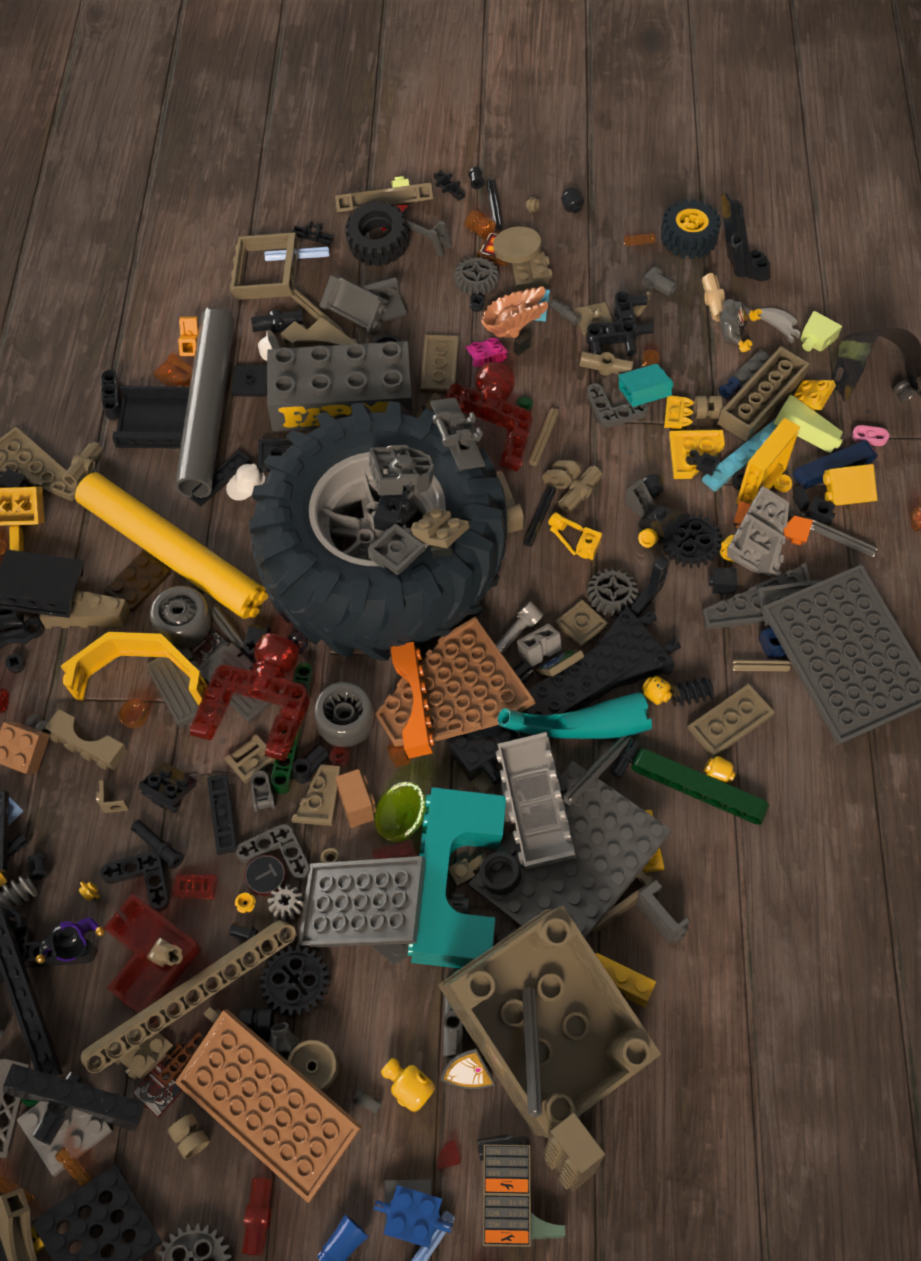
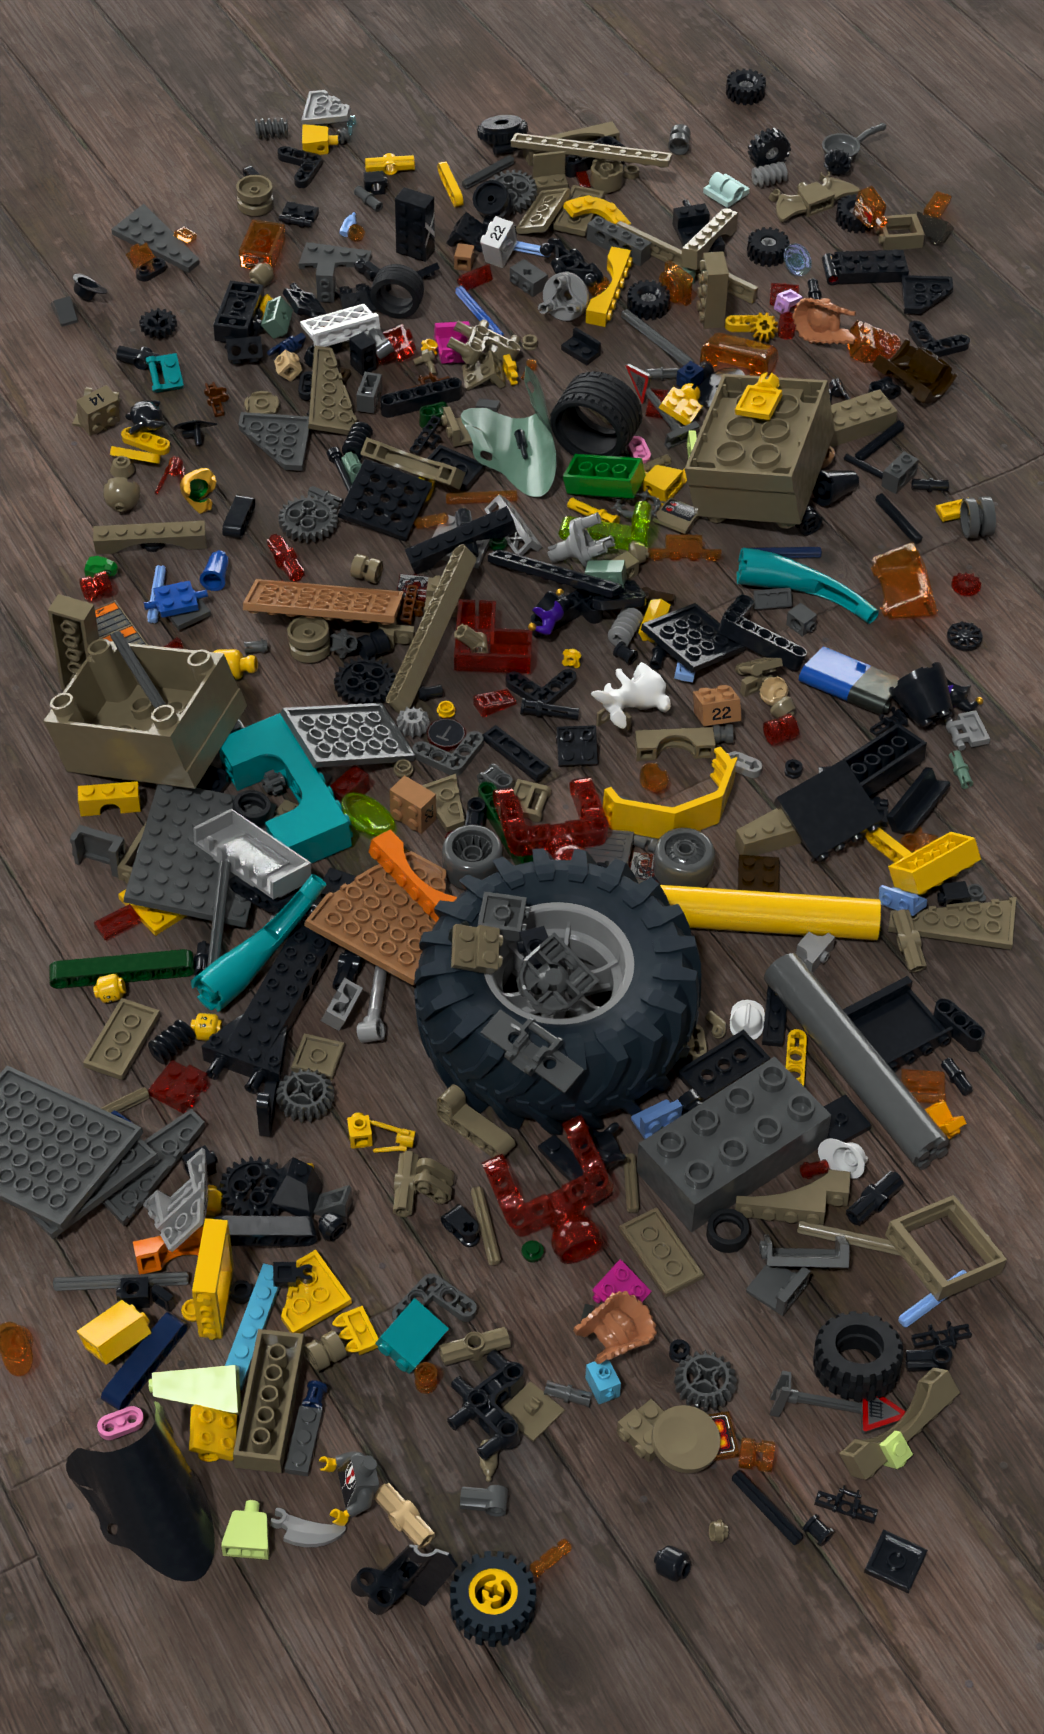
camera: 145 degrees right, 10 degrees down
(44, 692) = (746, 763): none -> light grey beam
(54, 498) = (899, 899): none -> medium blue bracket
(67, 799) = (642, 692): none -> white animal
(147, 365) = (957, 1076): none -> black axle
(154, 497) = (815, 949): none -> light grey brick
(244, 430) = (792, 1065): none -> yellow beam
(332, 221) = (927, 1359): none -> black piece
(445, 150) = (895, 1561): none -> black tile
(539, 516) = (428, 1131): black axle -> none
(559, 662) = (311, 996): dark tan tile -> none
(561, 440) = (461, 1226): none -> black piece
(683, 838) = (117, 922): none -> clear red plate
(705, 655) = (179, 1086): none -> clear red plate
(708, 494) = (271, 1230): none -> black beam

